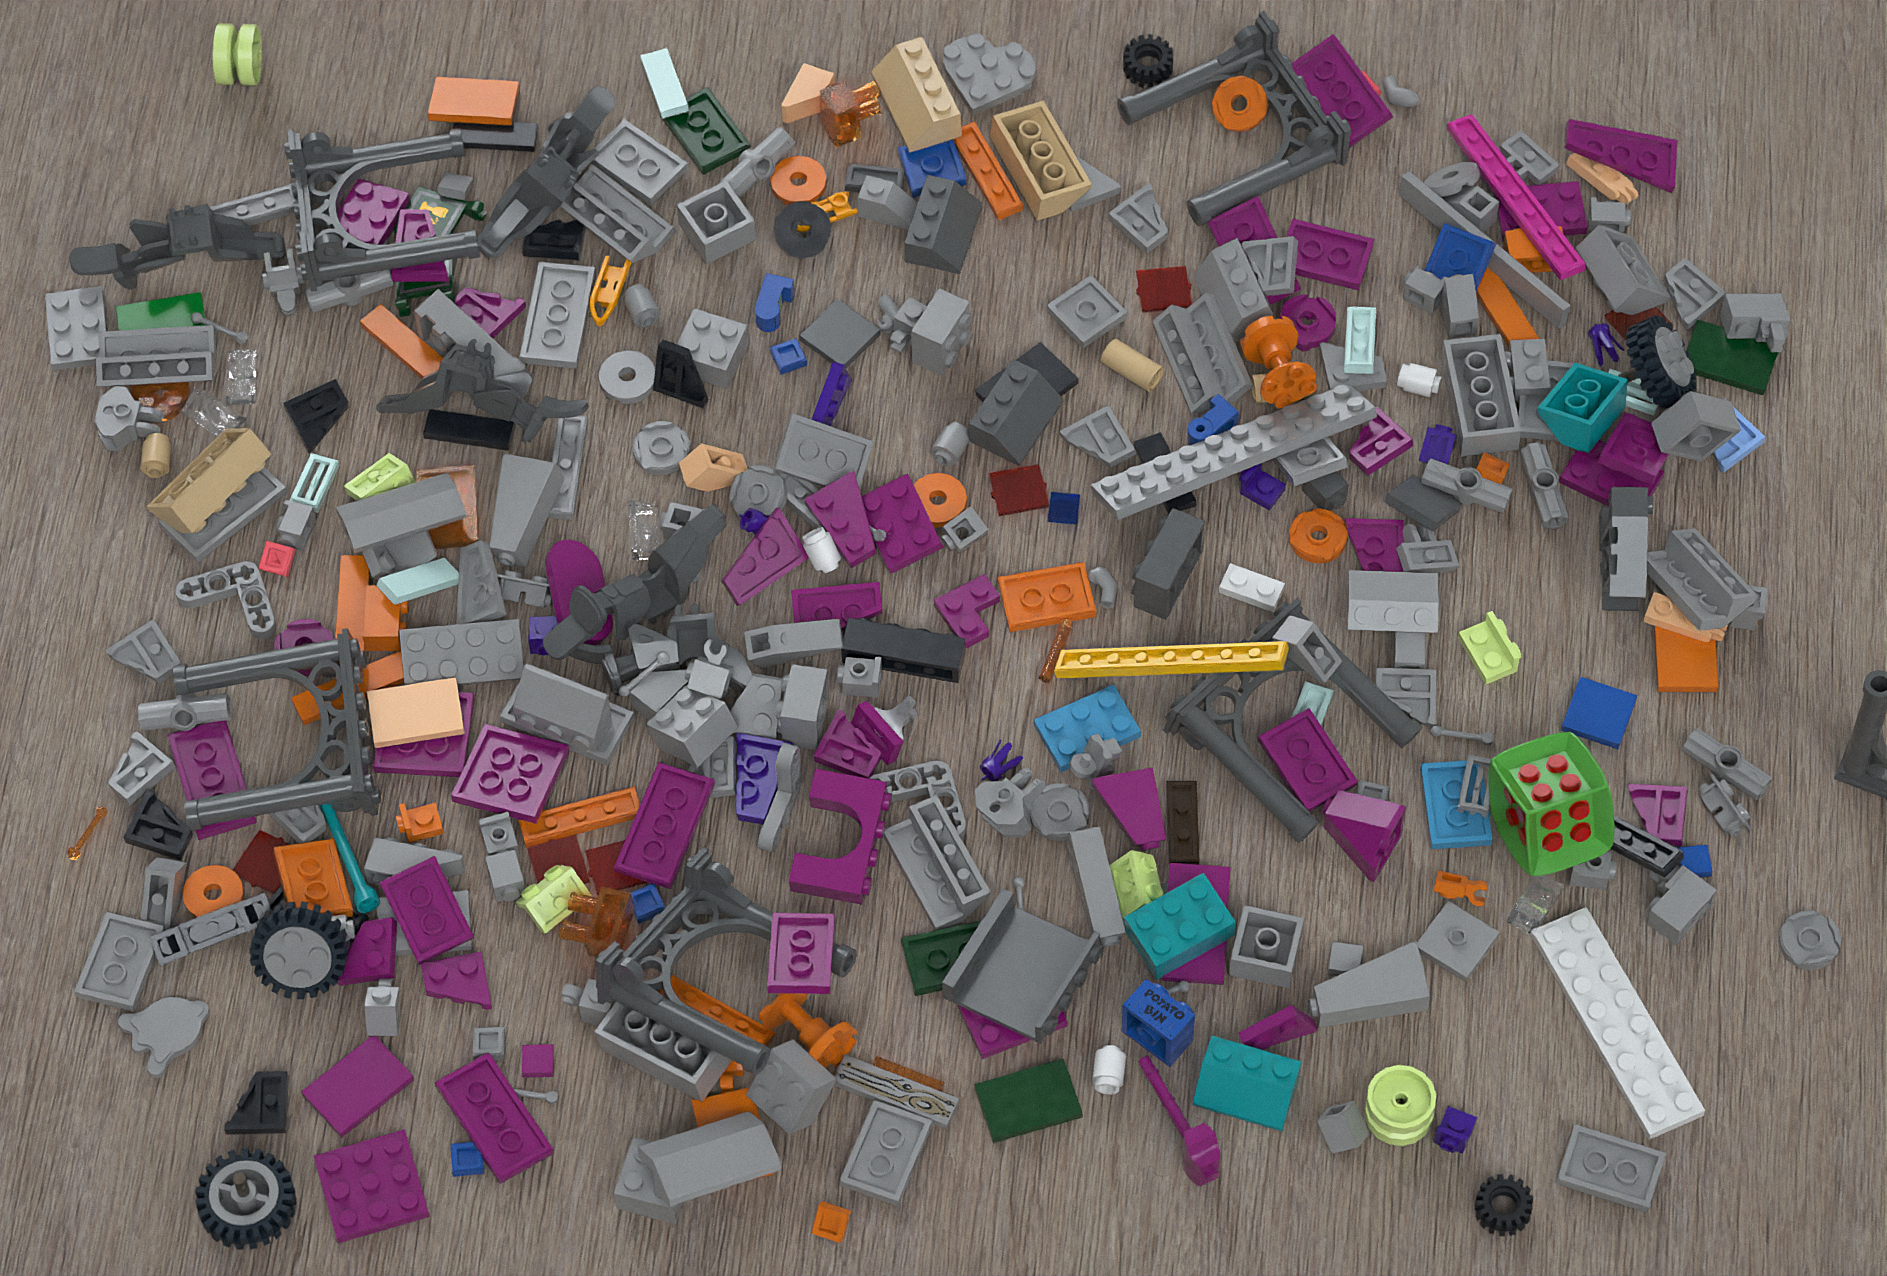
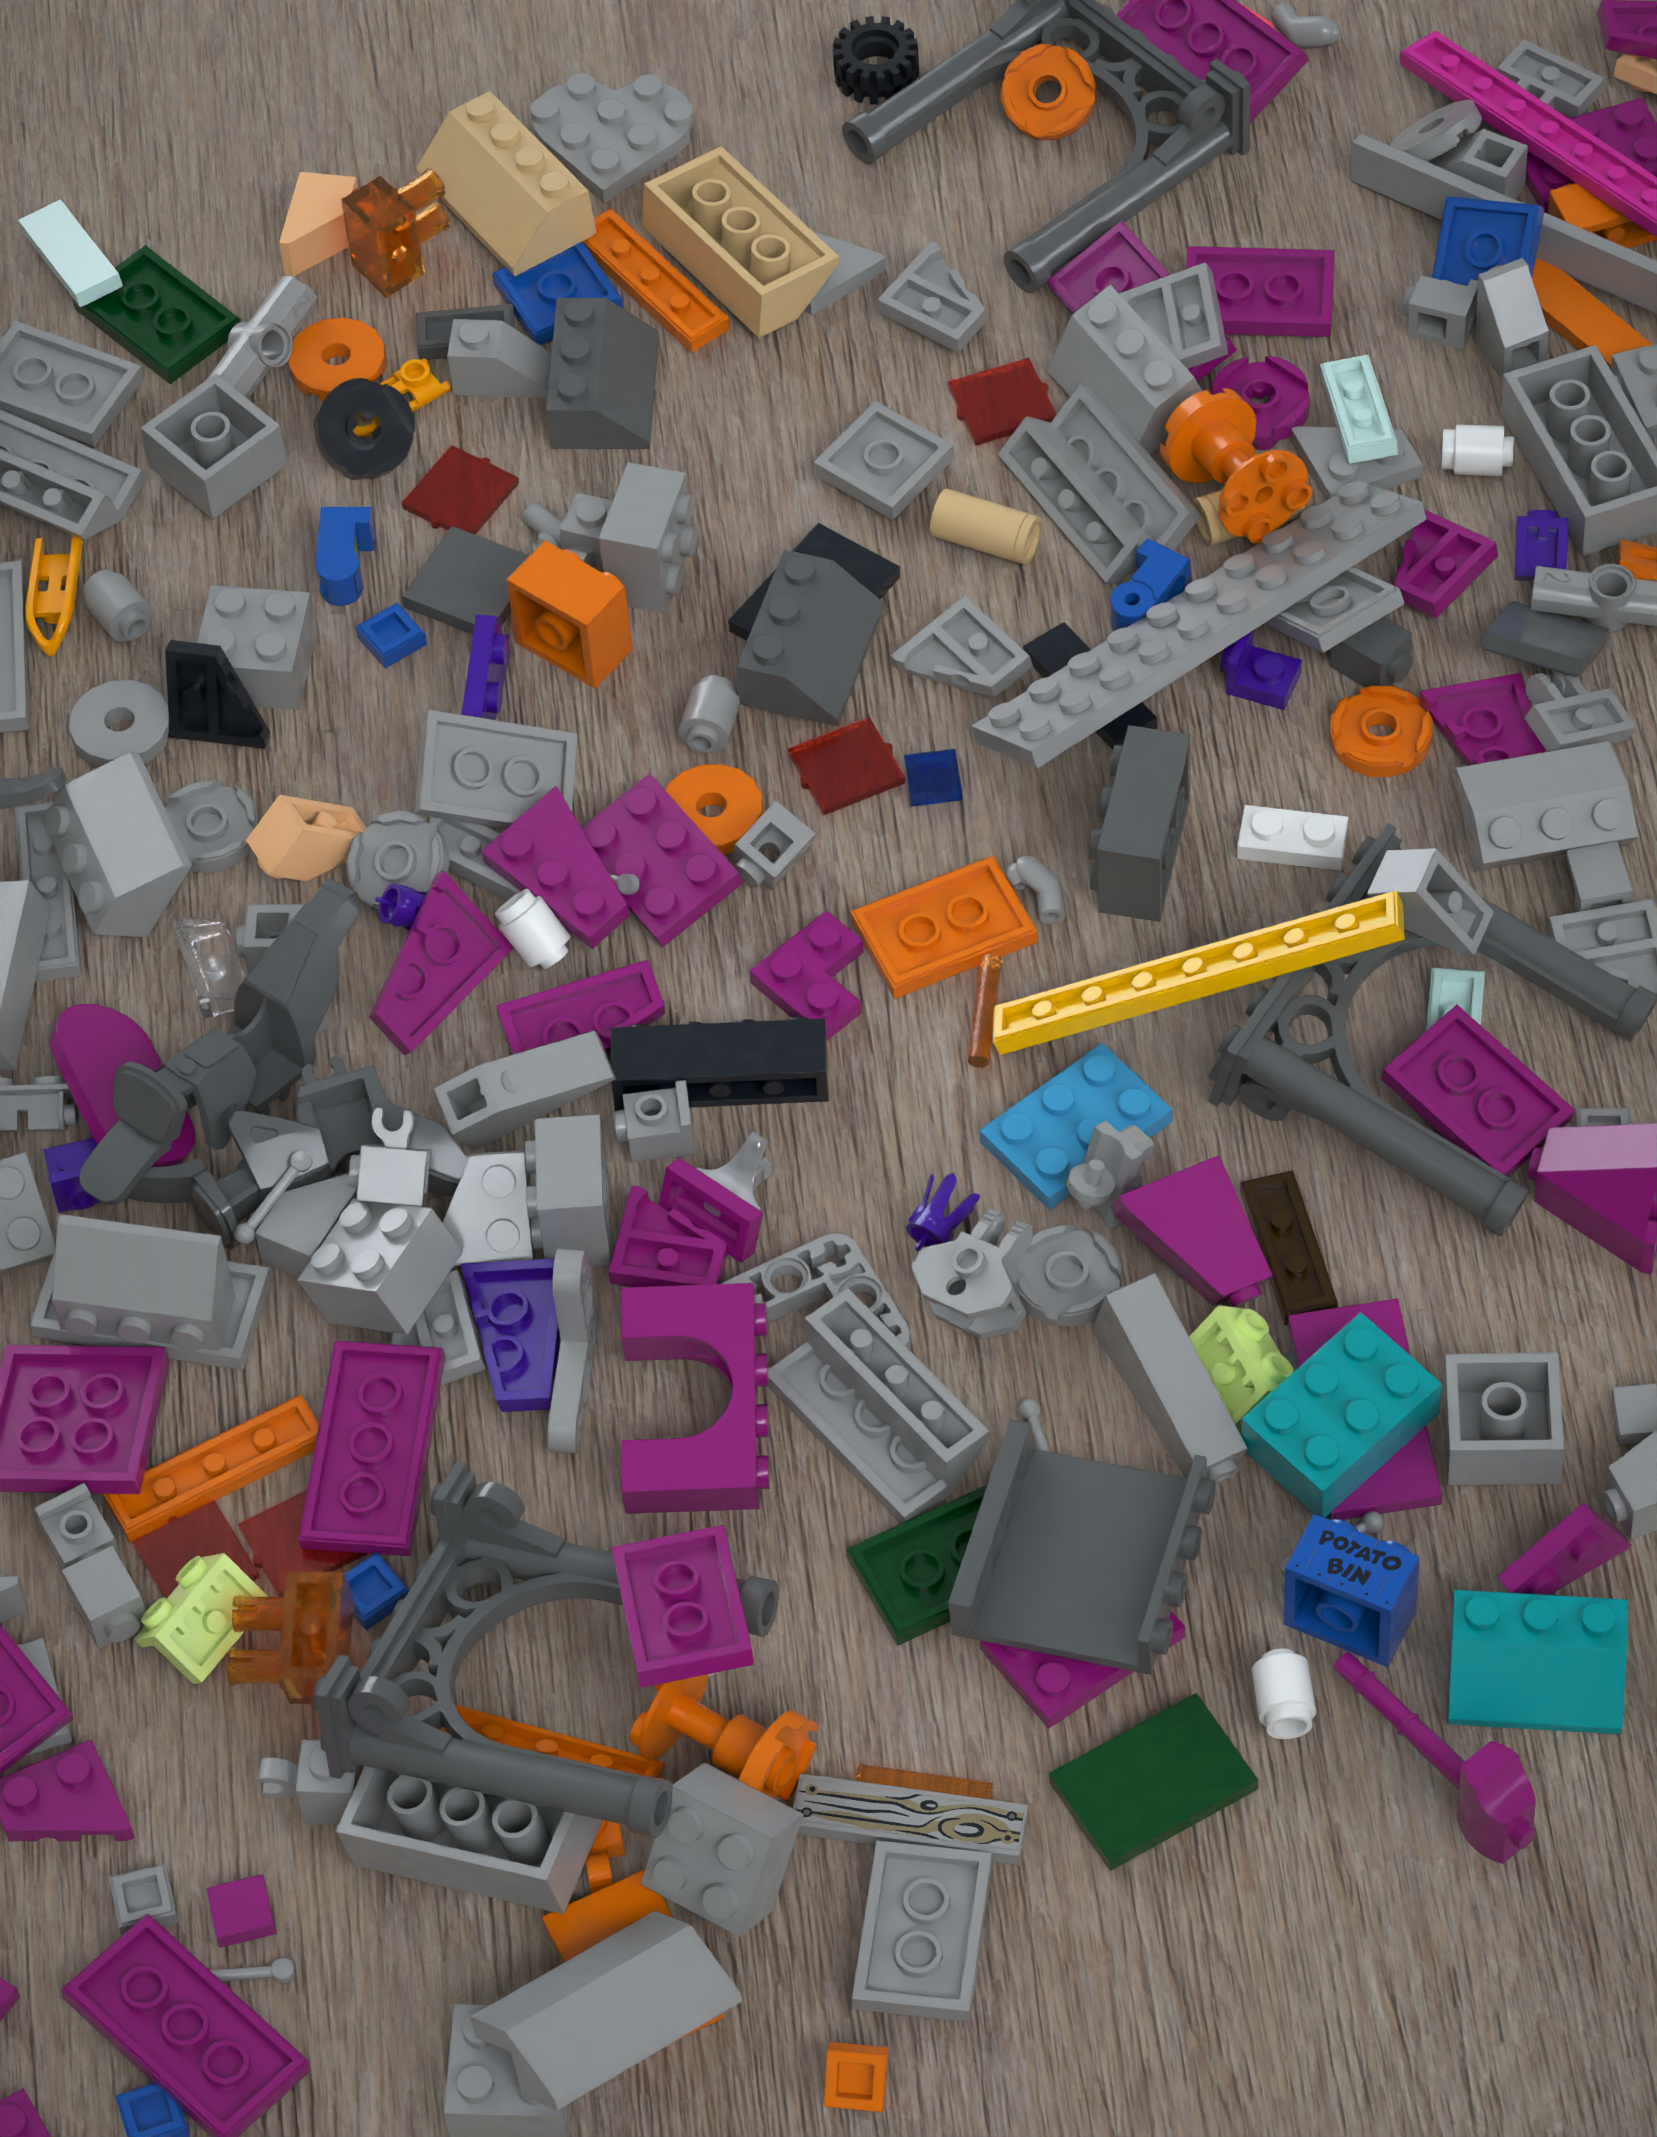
camera: 10 degrees left, 5 degrees down
(607, 452) = (117, 847): none -> light grey slope
(847, 277) = (460, 491): none -> clear red piece
(887, 368) = (570, 613): none -> orange brick

